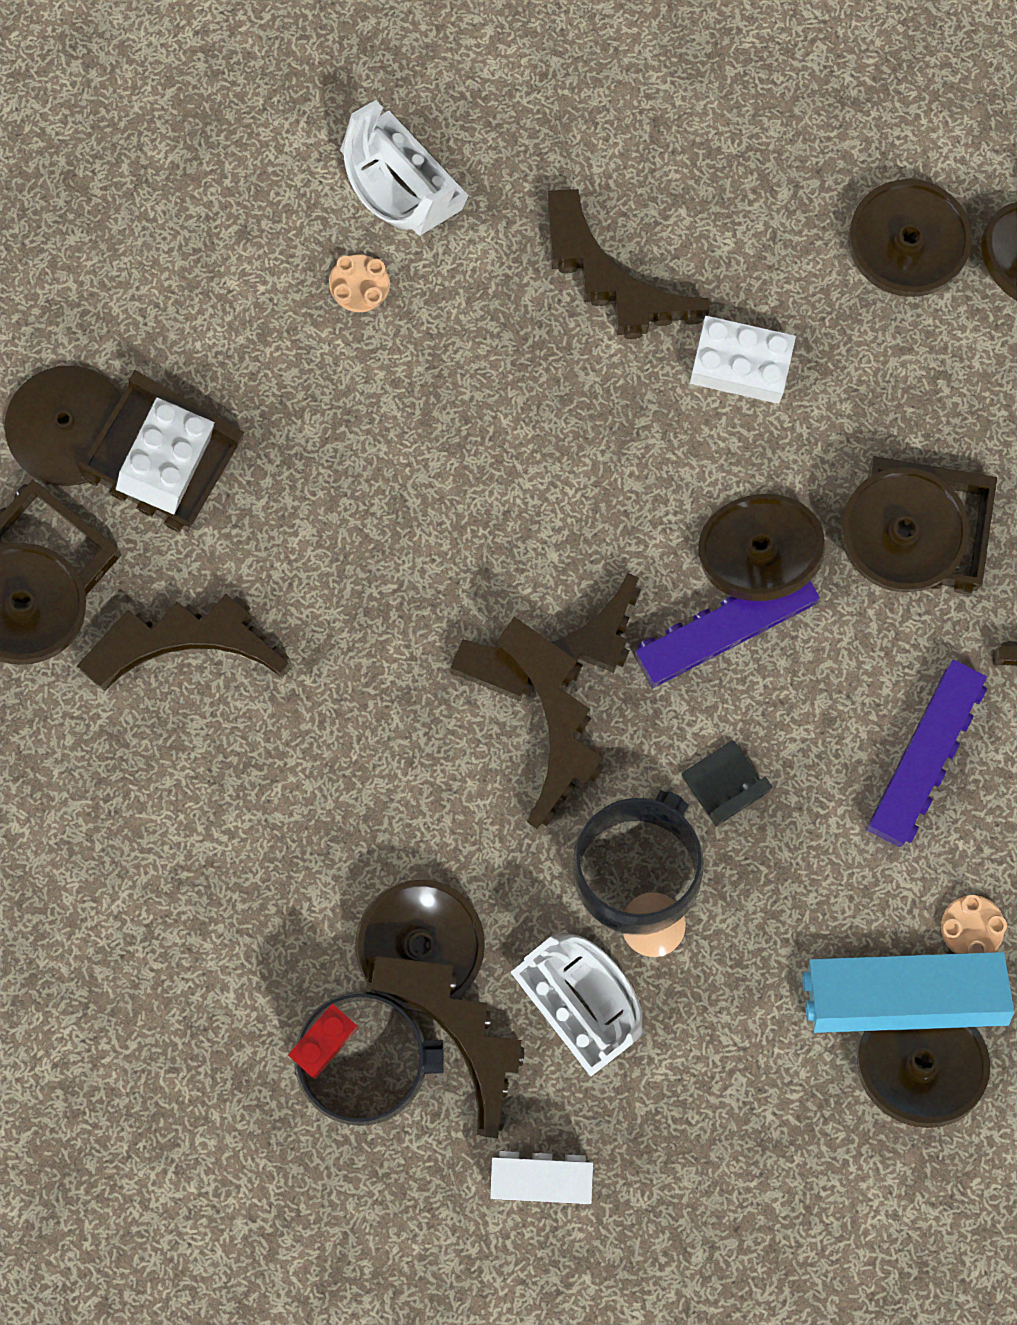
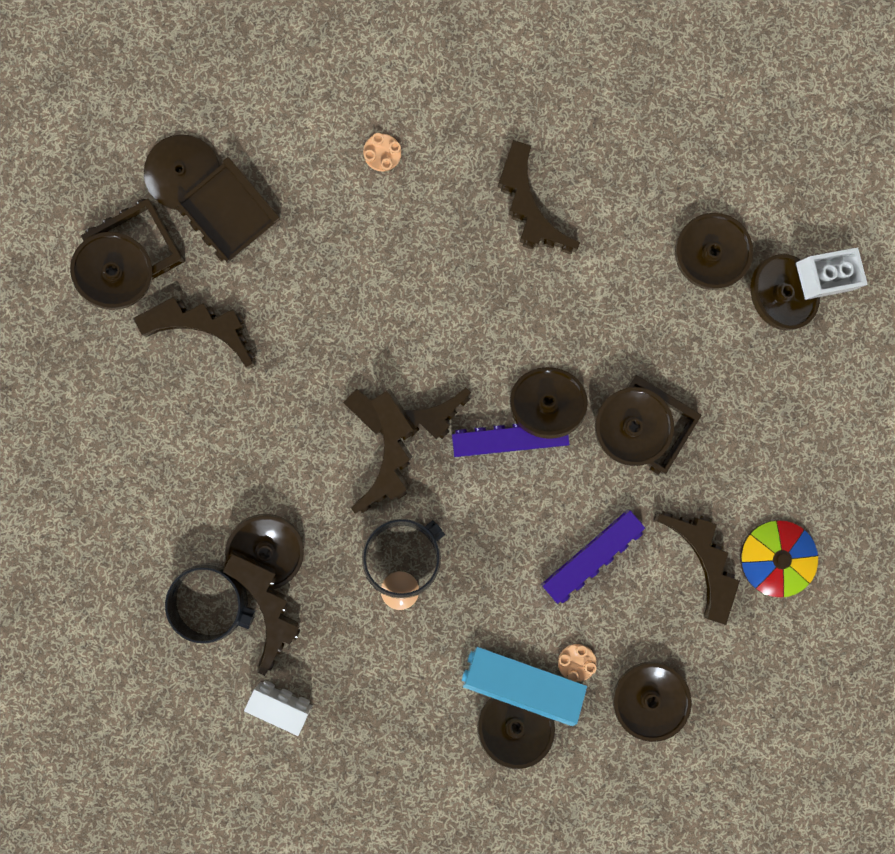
camera: 20 degrees right, 10 degrees up
(165, 456) = (226, 214): white brick -> none
(323, 1041) = (183, 591): red brick -> none
(387, 140) = (414, 97): white piece -> none
(597, 982) = (357, 614): white piece -> none
(725, 783) = (472, 528): pearl dark grey bracket -> none
(742, 359) = (585, 286): white brick -> none

